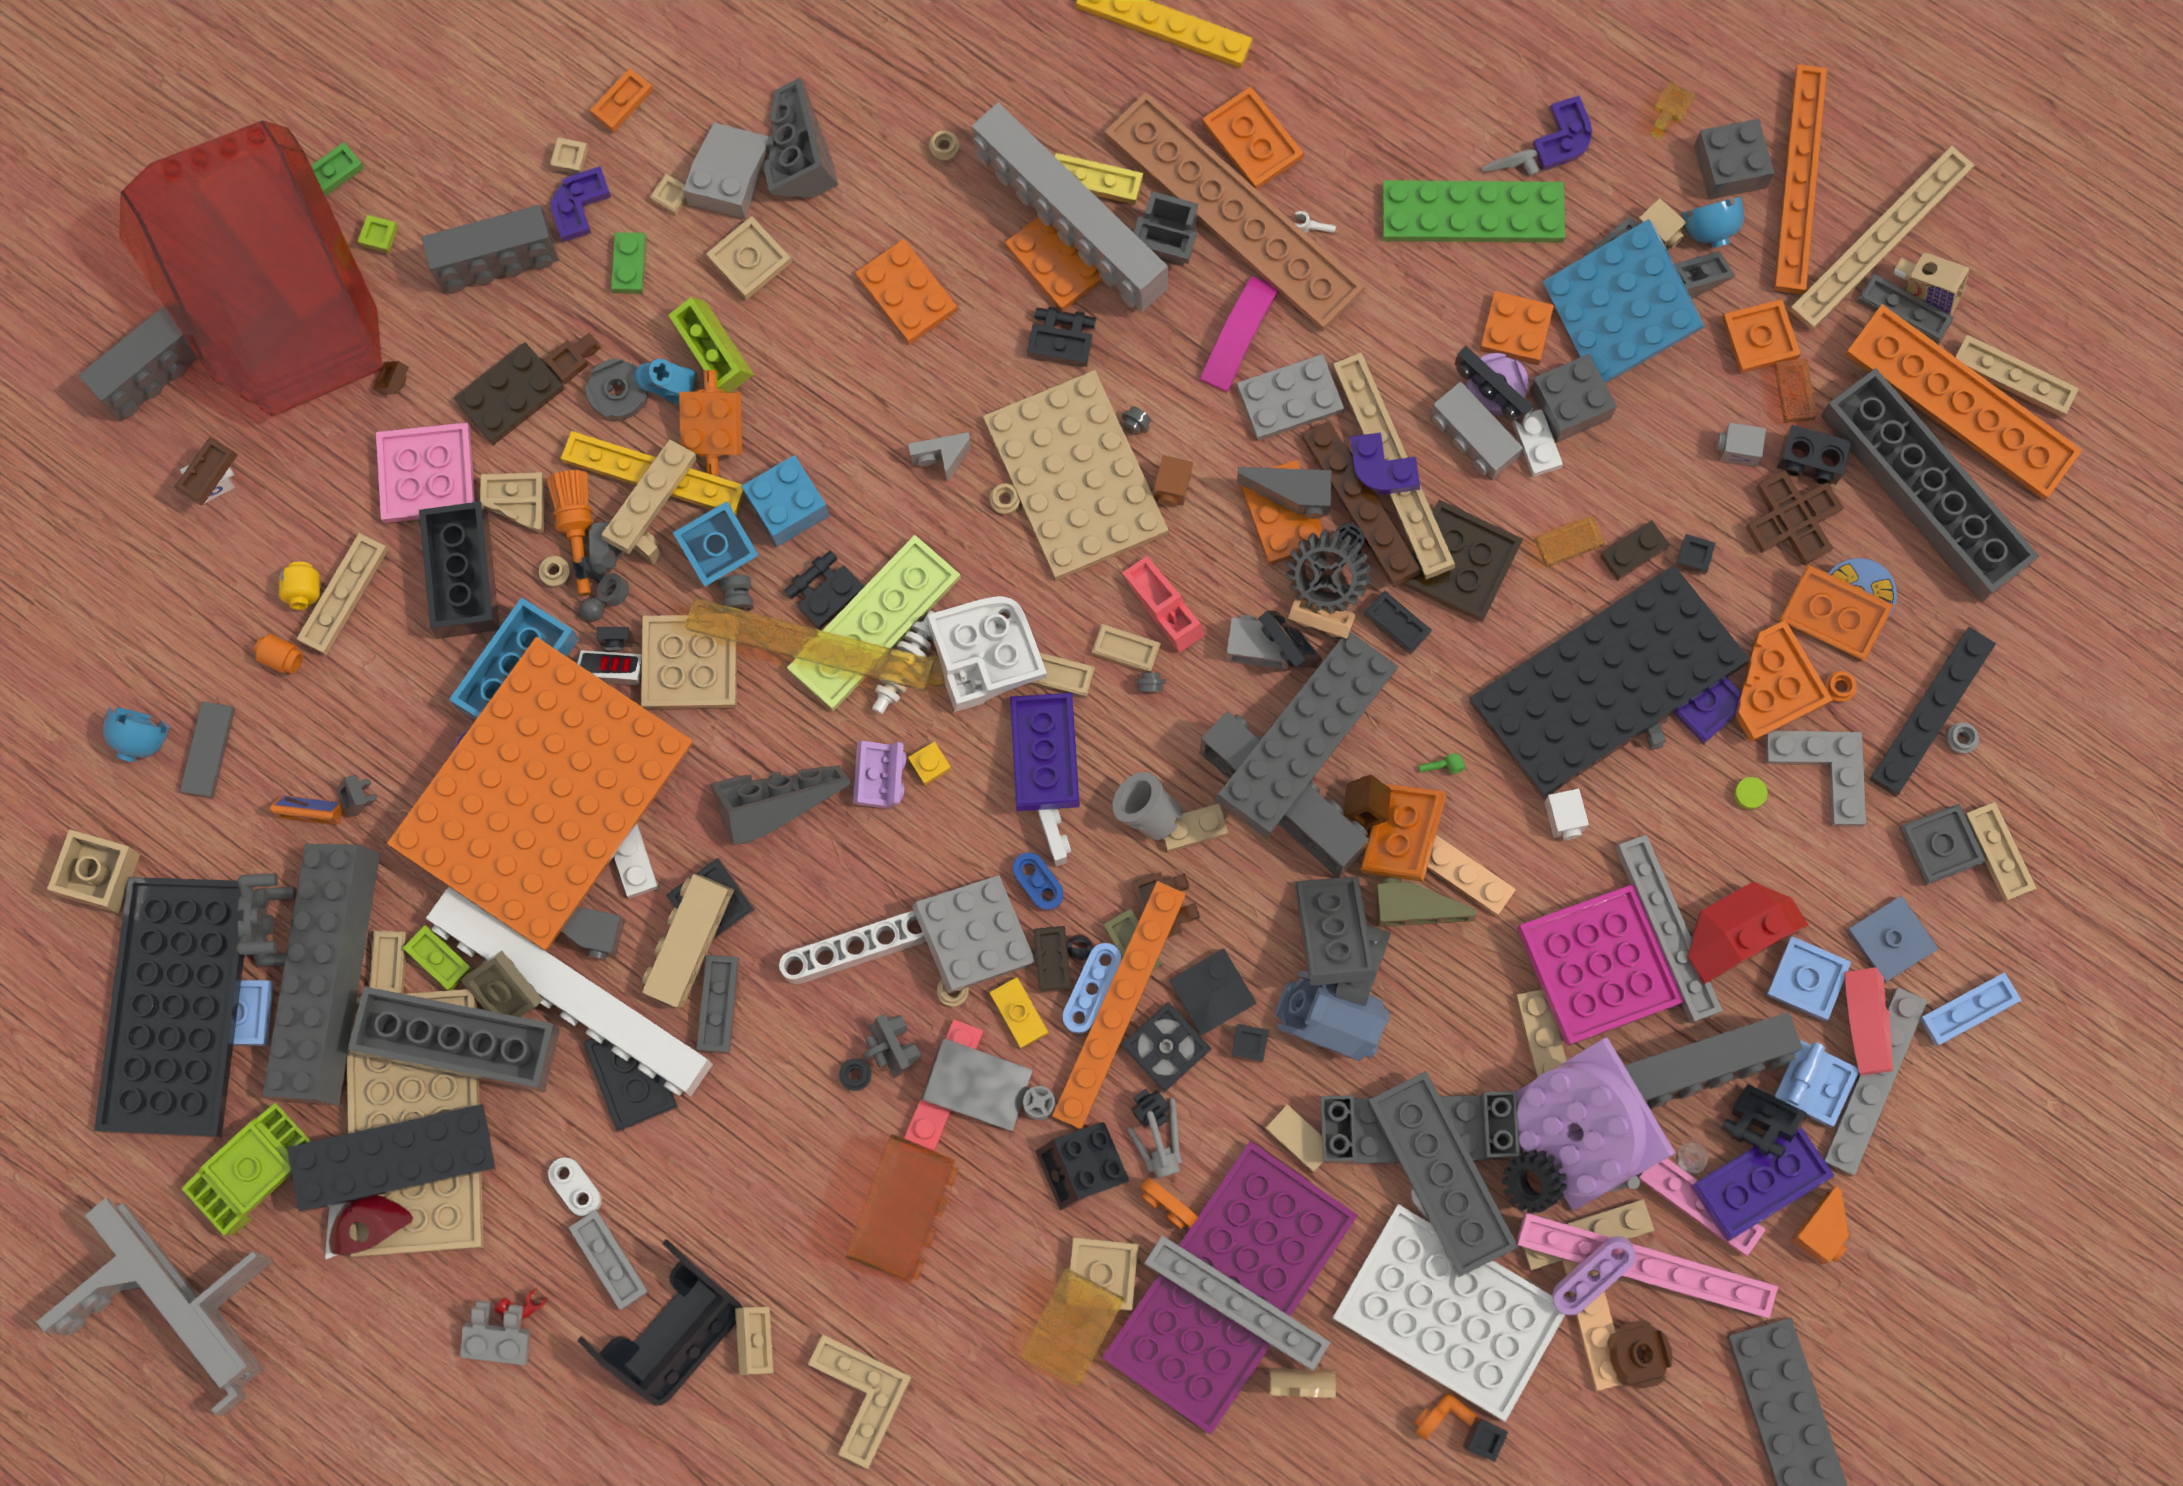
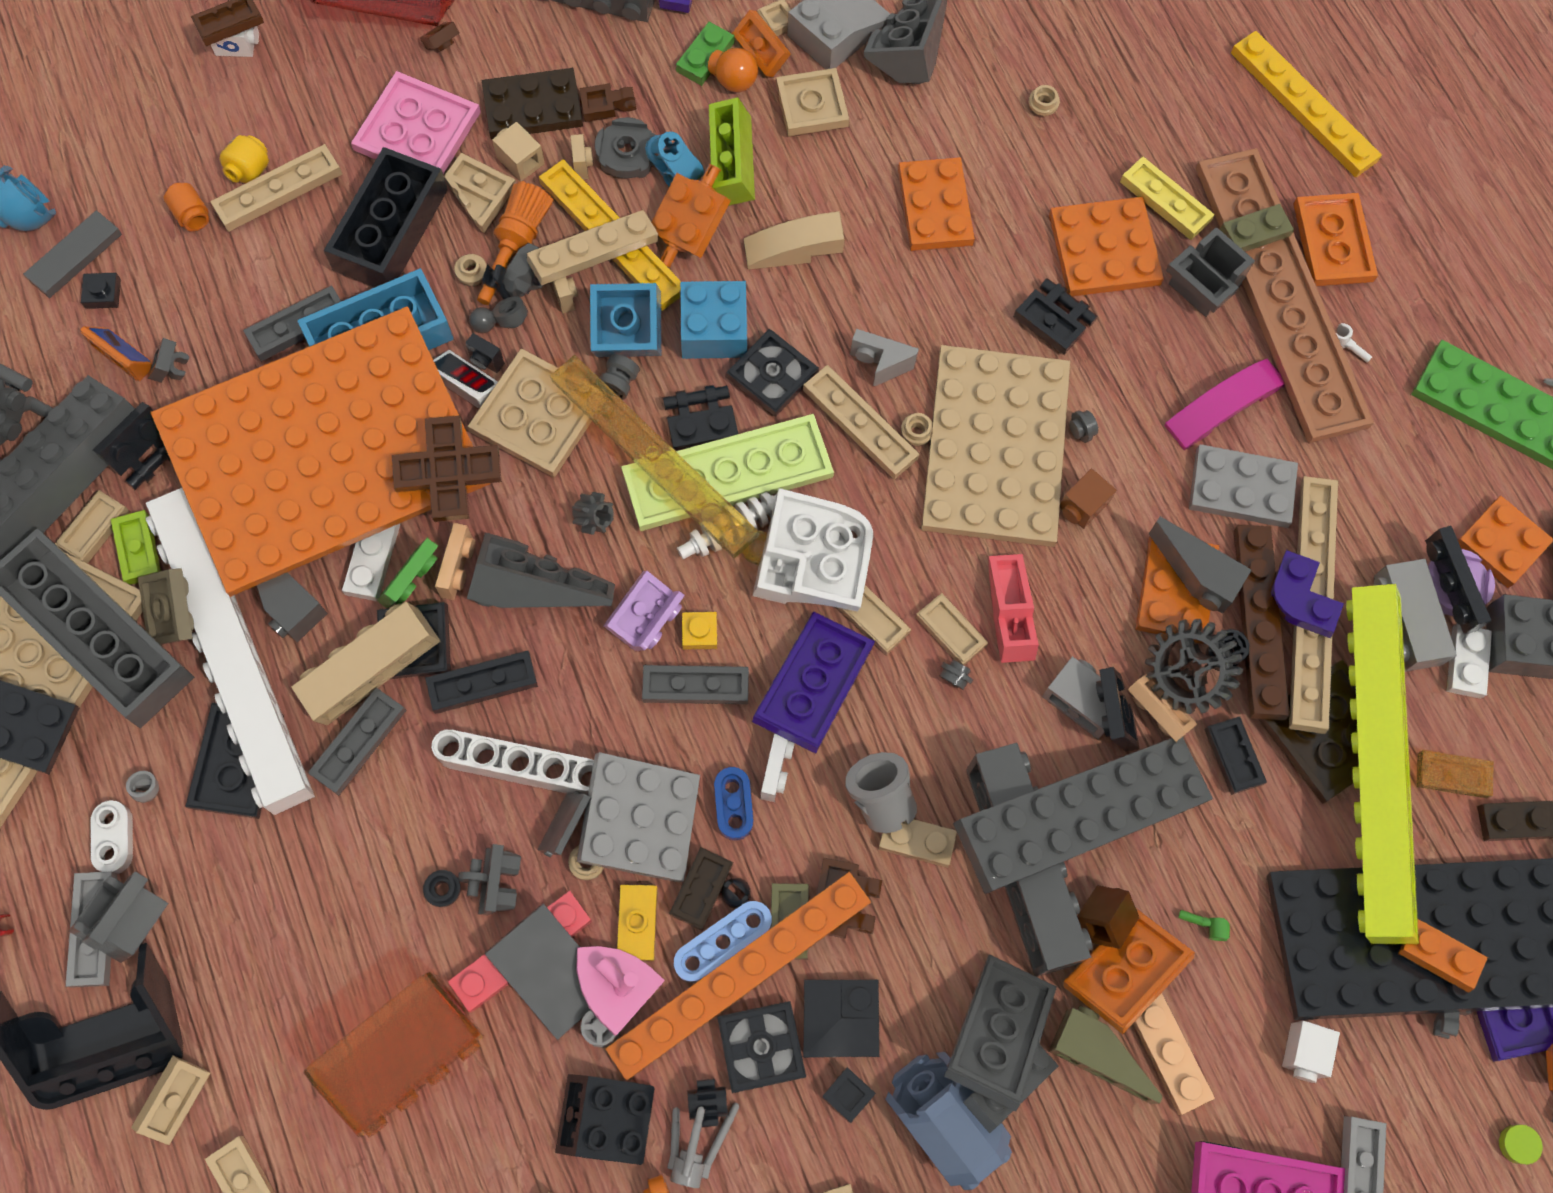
camera: 25 degrees right, 5 degrees down
(253, 767) = (100, 290): none -> black plate
(378, 877) = (129, 442): none -> black plate
(435, 707) = (282, 328): none -> dark grey plate
(527, 445) = (518, 151): none -> tan brick
(571, 1131) = (142, 781): none -> light grey hinge
(584, 419) = (581, 156): none -> tan plate
(630, 1234) = (119, 917): none -> dark grey plate
(658, 751) = (446, 468): none -> reddish brown plate
(665, 266) = (734, 68): none -> orange piece
(673, 228) = (762, 43): none -> orange plate
(674, 858) = (417, 565): none -> bright green plate
(700, 808) = (451, 574): none -> light nougat plate
(785, 902) = (481, 682): none -> black plate
(788, 718) = (592, 513): none -> dark grey gear
(810, 394) = (795, 241): none -> tan slope
(859, 518) = (772, 372): none -> black piece
(919, 972) = (563, 824): none -> dark grey piece
(953, 807) = (695, 684): none -> dark grey plate
(955, 519) = (860, 422): none -> tan plate
(1031, 1065) = (614, 984): none -> bright pink shield
(1069, 208) = (1131, 204): light grey brick -> none
(1184, 168) = (1258, 228): none -> olive plate
(1507, 565) = (1383, 767): none -> neon yellow brick
(1624, 688) = (1445, 957): none -> orange plate

